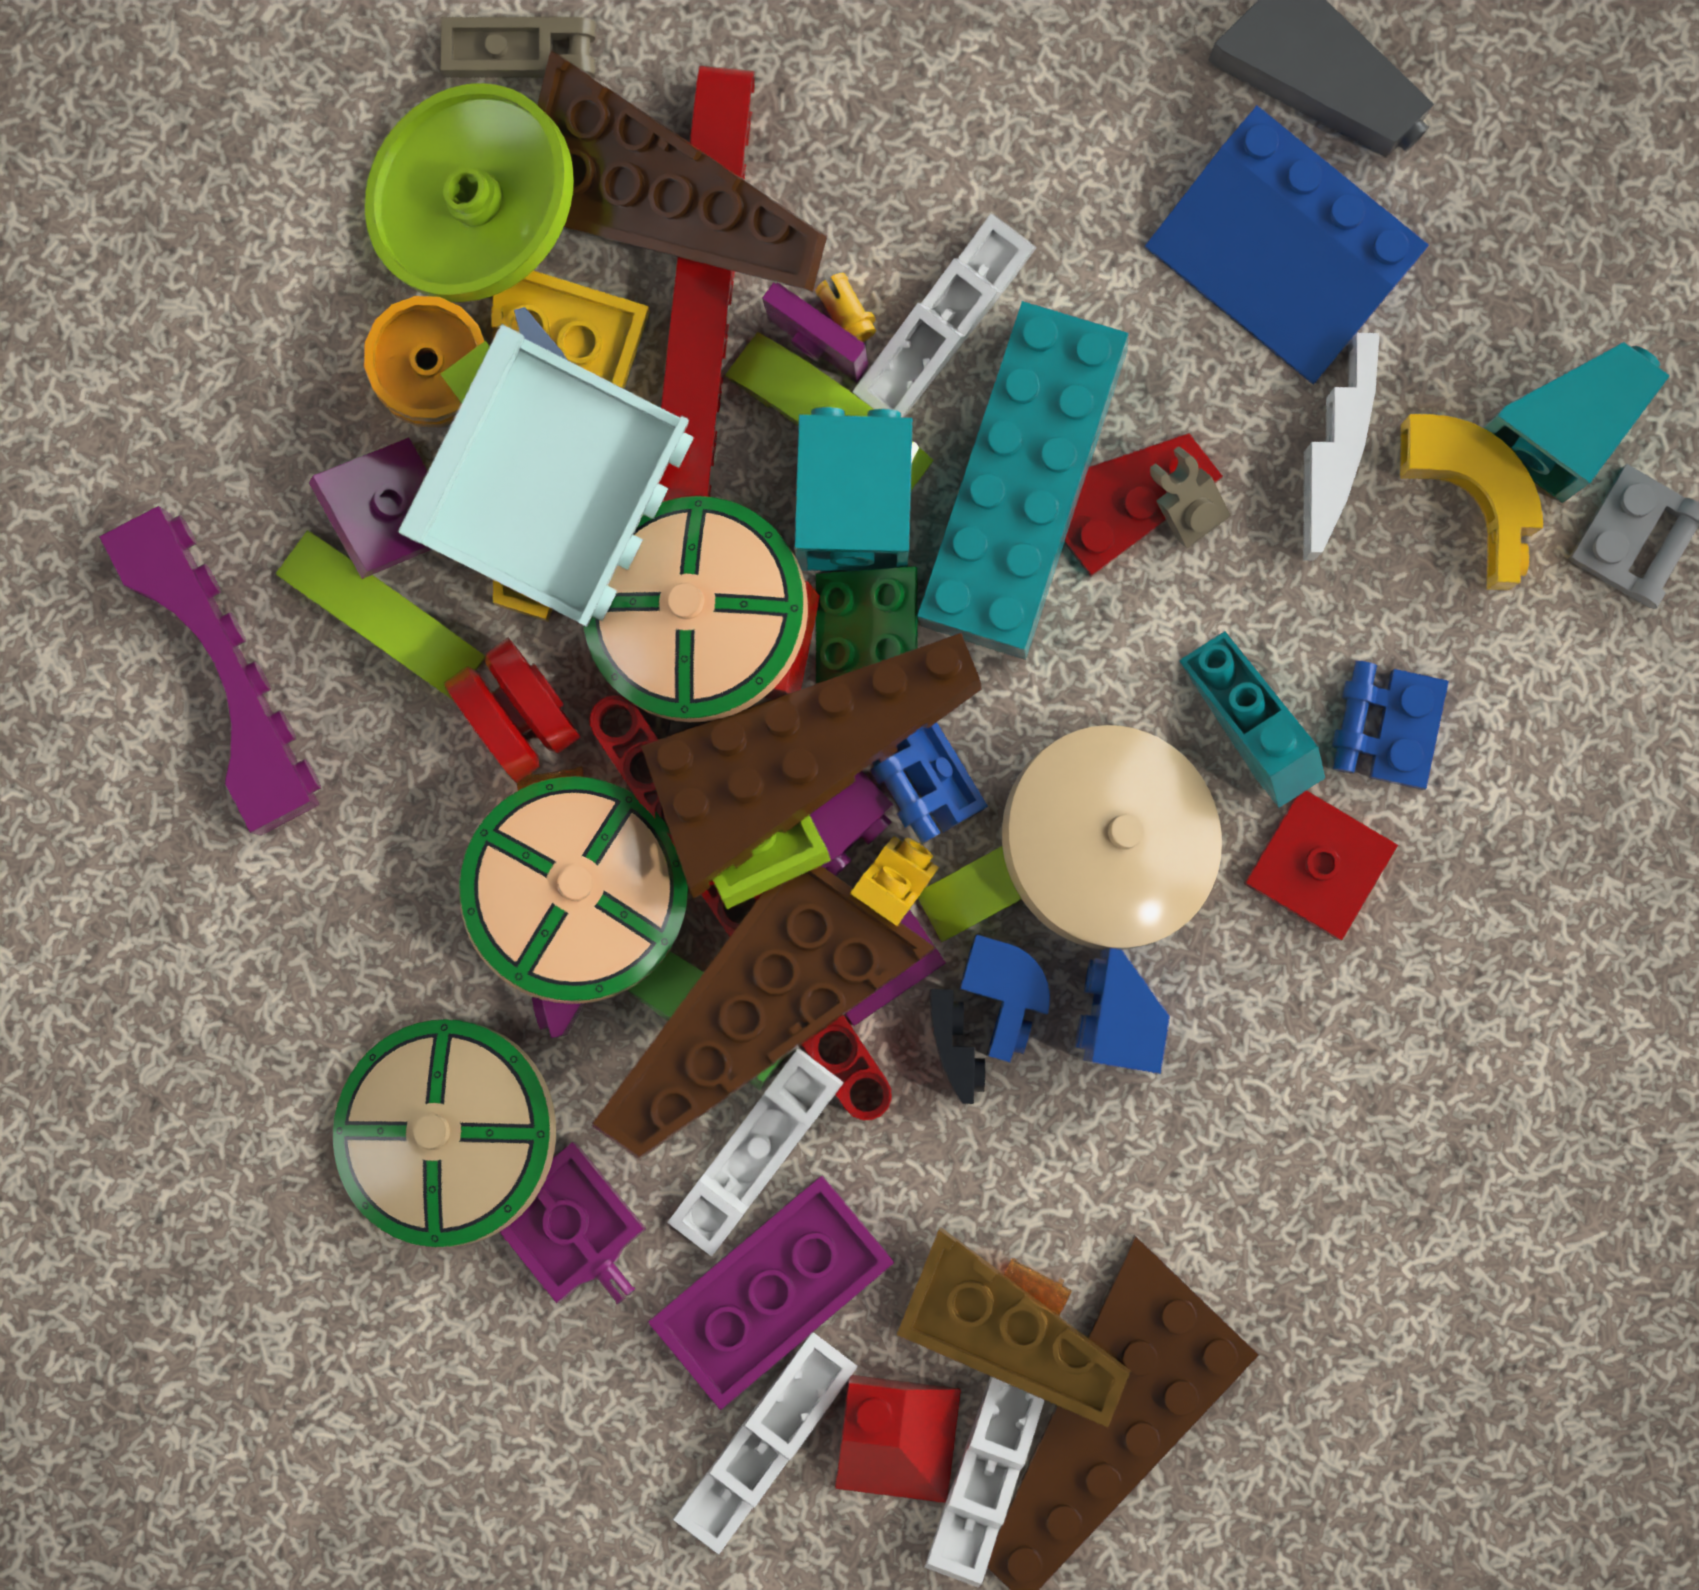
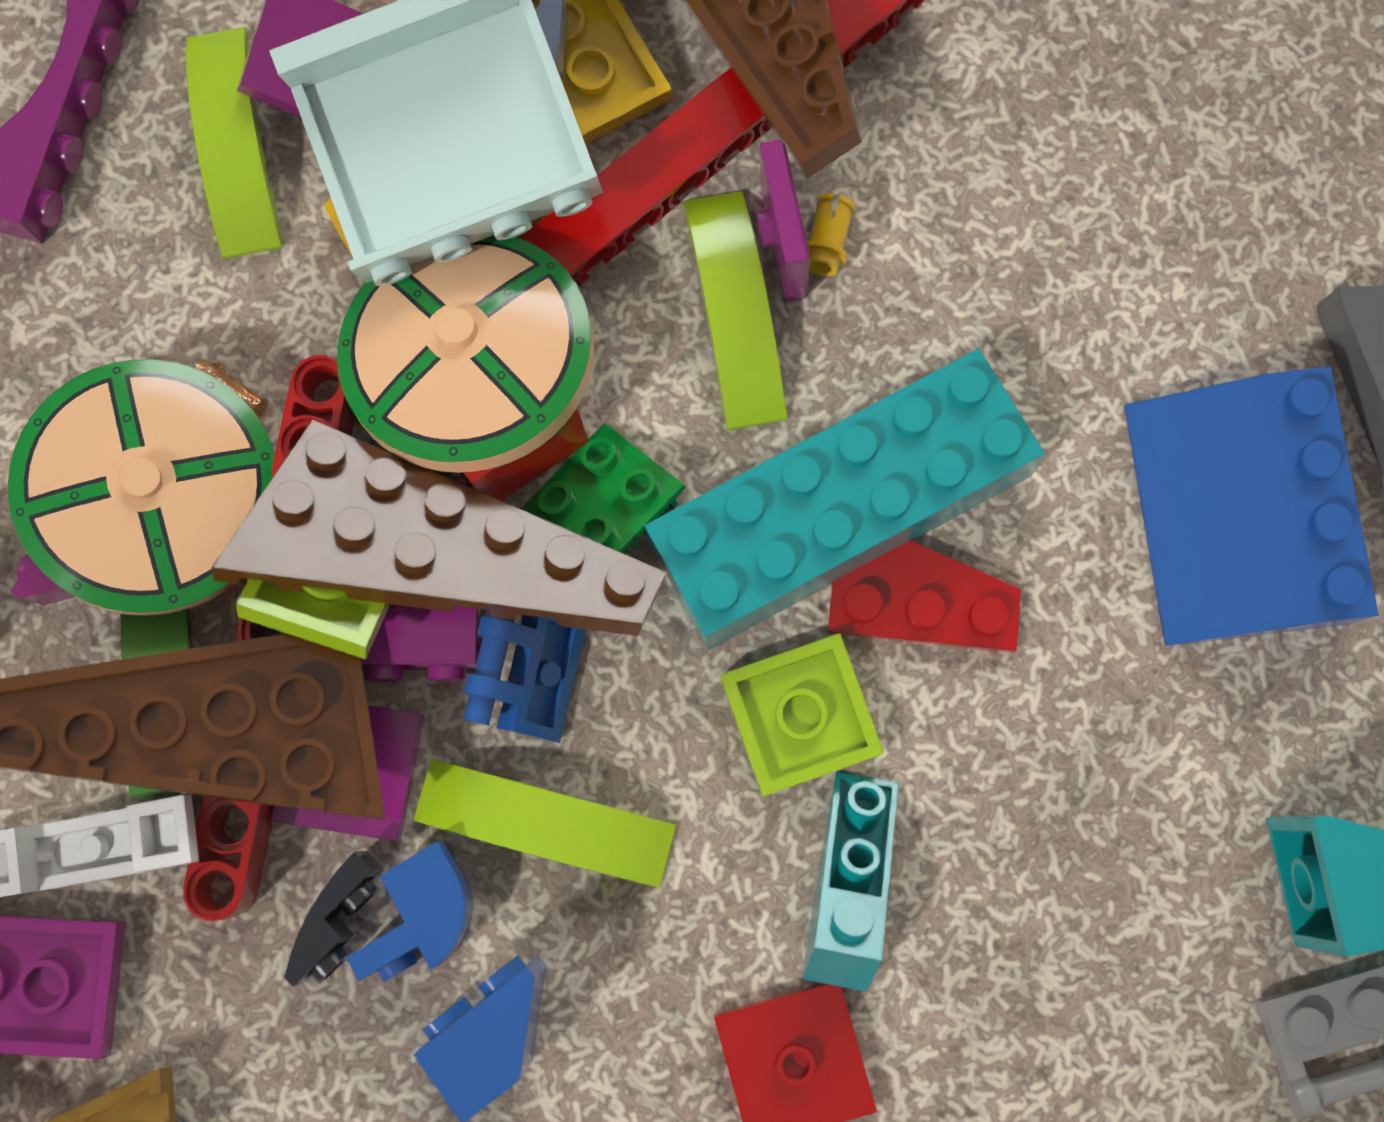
camera: 40 degrees right, 5 degrees down
(511, 710) = (242, 296): red wheel -> none
(853, 490) = (689, 373): teal slope -> none
(896, 878) = (414, 730): yellow slope -> none
(945, 317) = (901, 313): white slope -> none
(1111, 837) = (632, 869): tan dish -> none
(1125, 645) = (801, 714): none -> lime plate
(1191, 499) = (971, 646): dark tan plate -> none
(1334, 463) = (1124, 726): white slope -> none
(1406, 728) = (977, 1016): blue plate -> none
(1489, 472) = (1253, 864): yellow arch -> none

